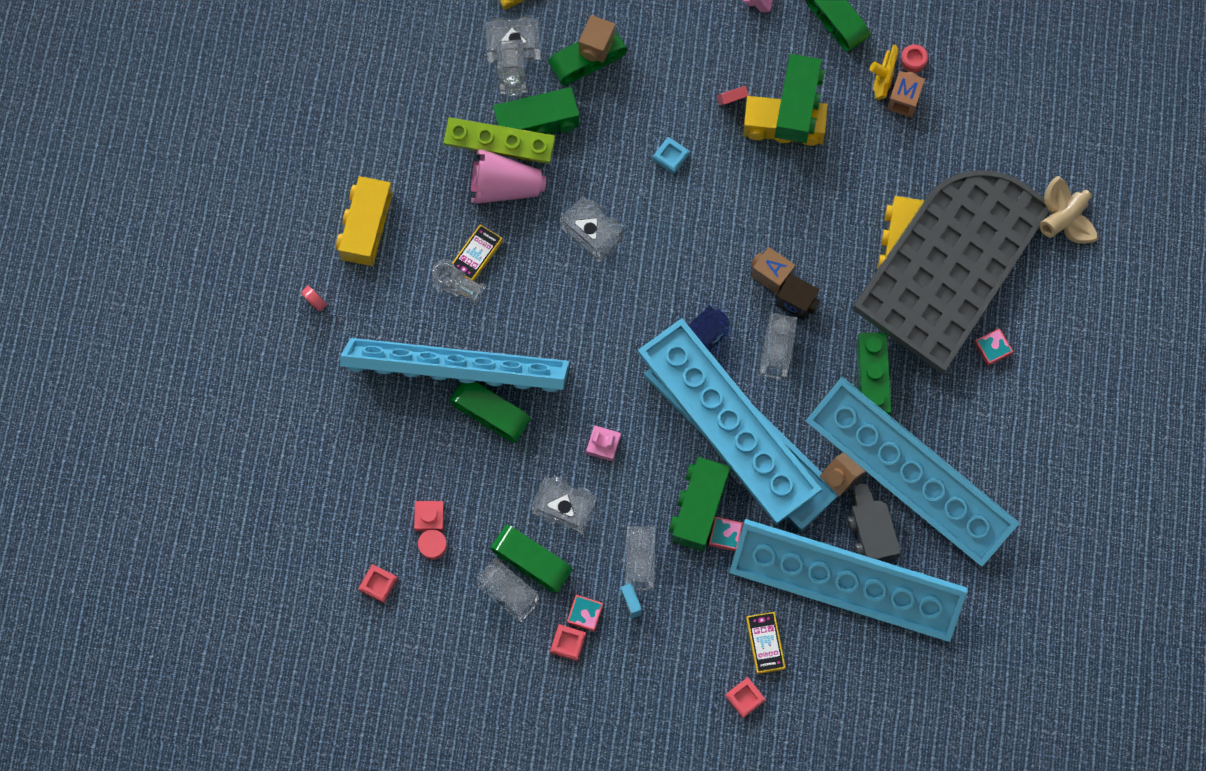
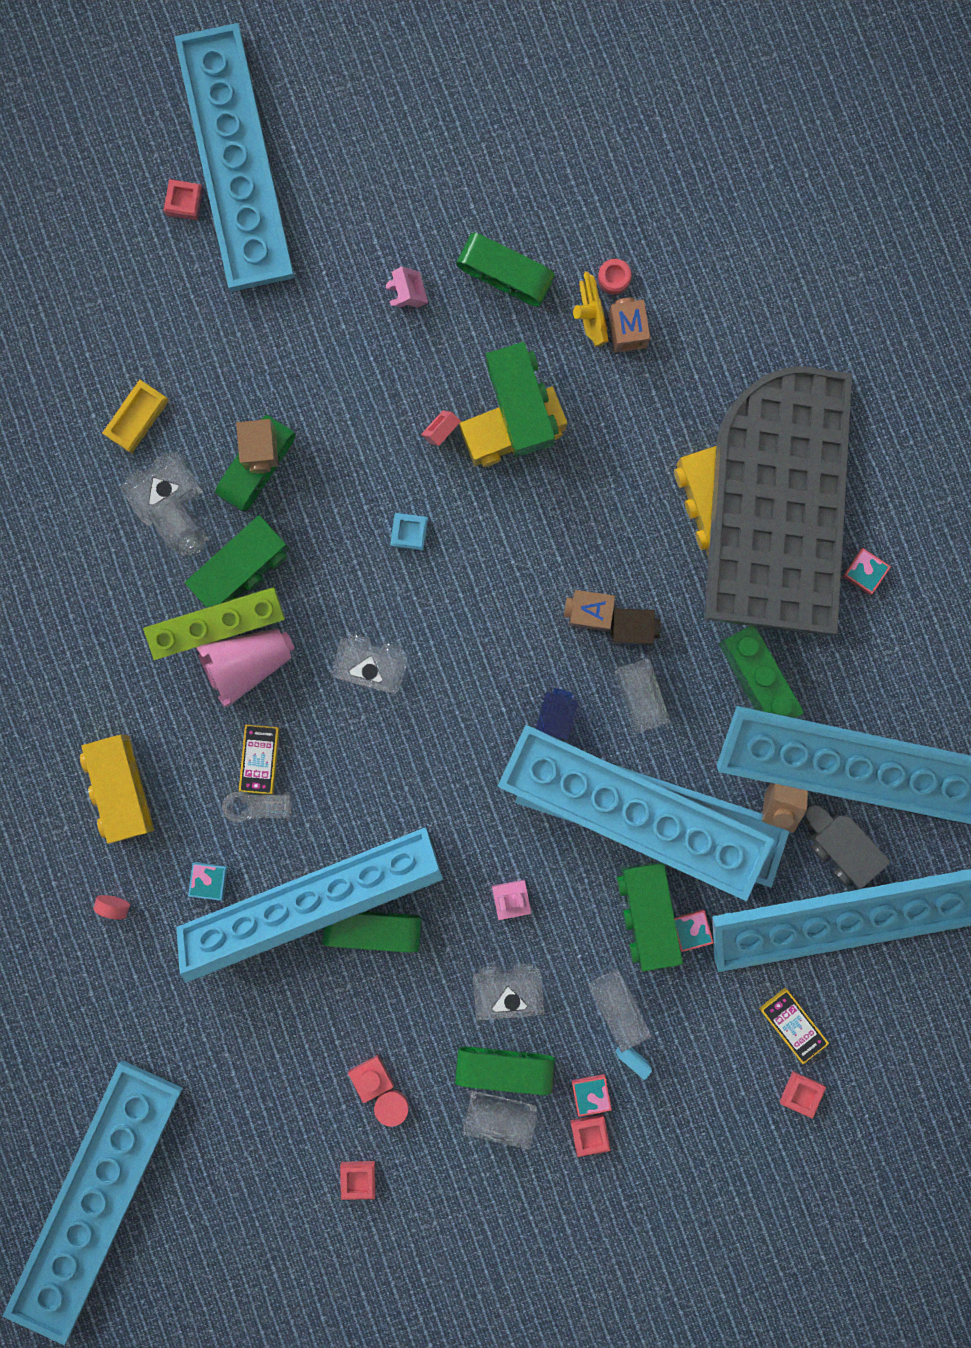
camera: 30 degrees left, 15 degrees up
(179, 495) = (92, 1202): none -> medium azure plate
(391, 317) = (207, 881): none -> tile
(1067, 213) = (874, 381): tan plant -> none

